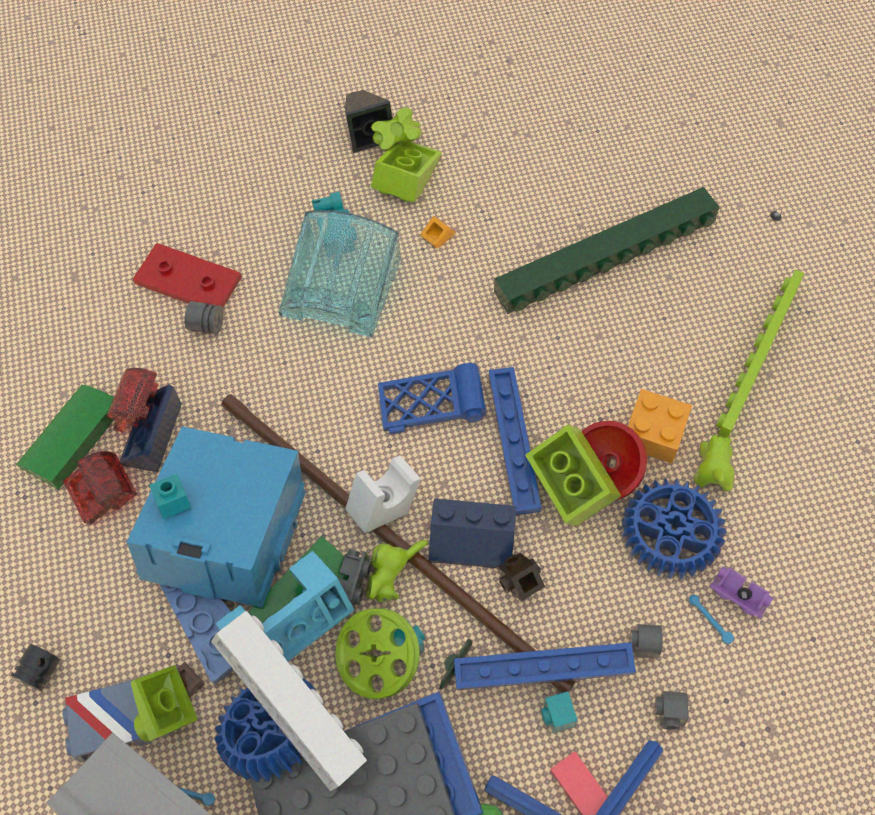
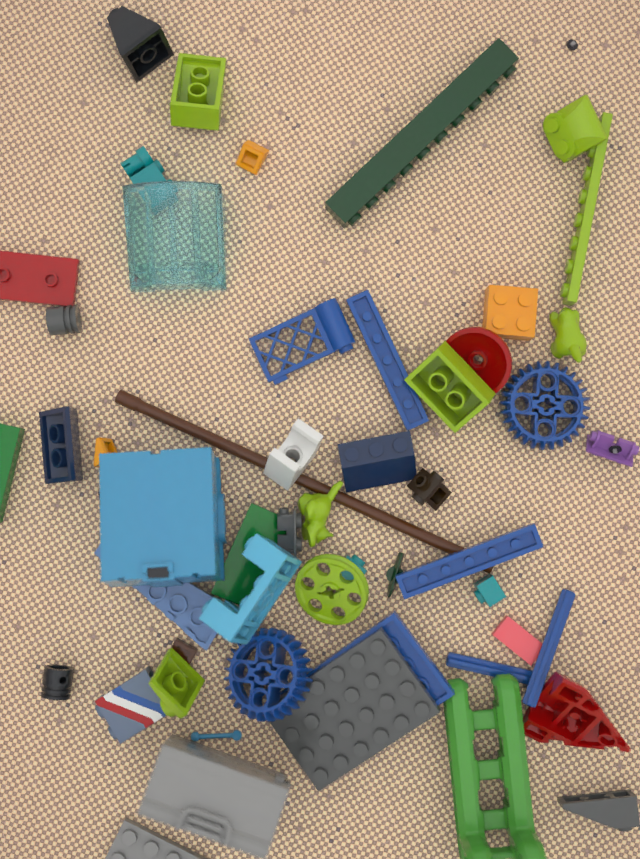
camera: 20 degrees left, 25 degrees up
(99, 485) = (39, 512): clear red brick -> none
(131, 397) = (35, 426): clear red brick -> none
(170, 496) = (129, 534): teal plate -> none
(289, 700) = (283, 666): white brick -> none
(397, 129) = (178, 49): lime animal -> none
(647, 640) = (544, 511): dark grey plate -> none
(672, 709) = (576, 561): dark grey plate -> none
(726, 637) = (606, 486): dark azure hinge -> none
(761, 278) = (574, 129): none -> lime slope

